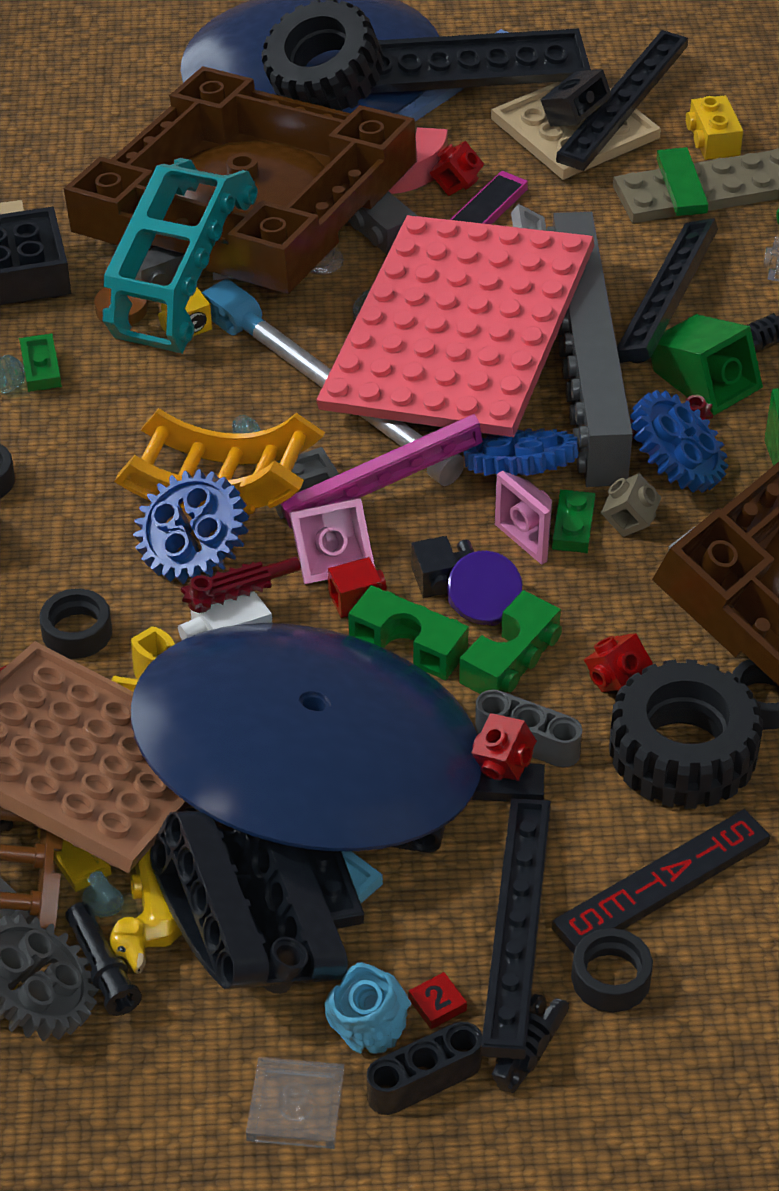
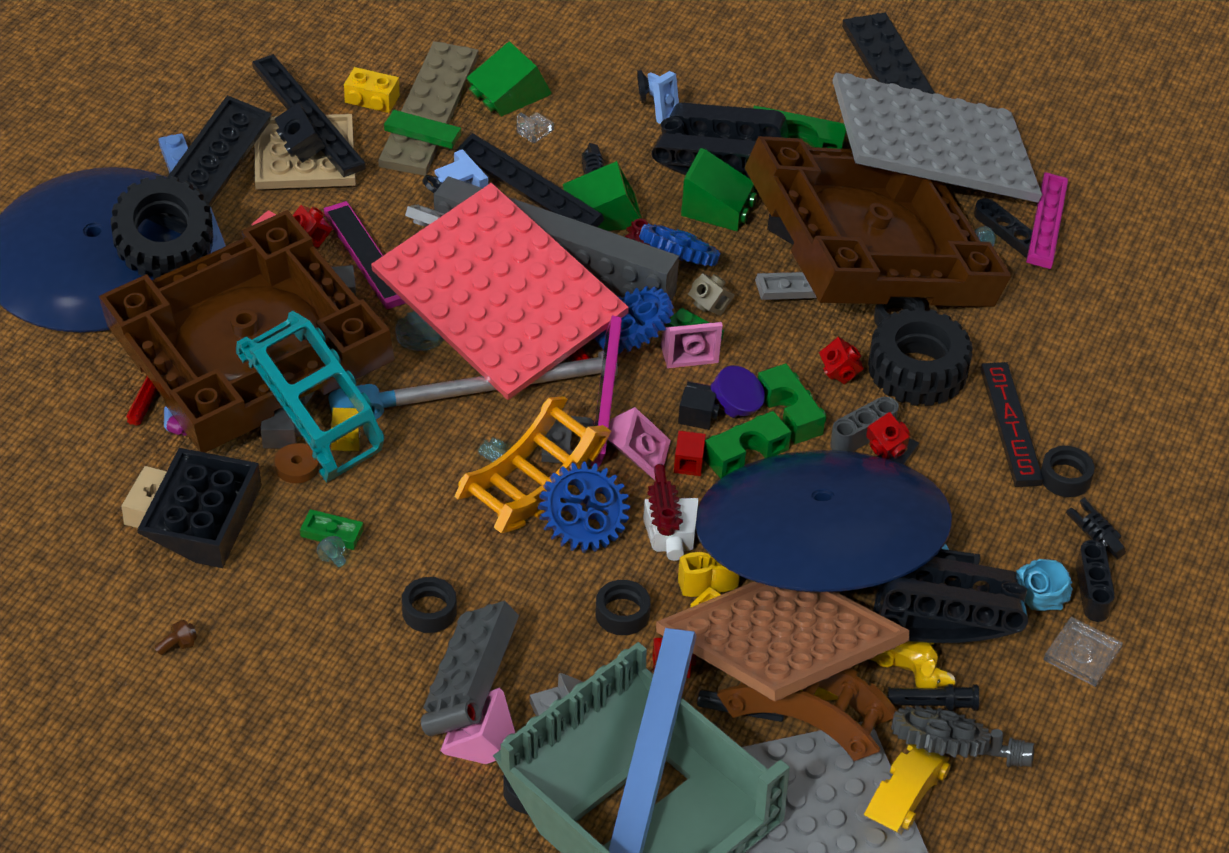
camera: 65 degrees left, 0 degrees up
(60, 1074) = (1017, 752): none -> dark grey piece
(101, 896) = (881, 678): clear light blue plate -> none
(437, 1000) = (1042, 551): red tile -> none
(516, 930) = (1017, 494): black tile -> none
(652, 238) = (462, 169): none -> light blue piece

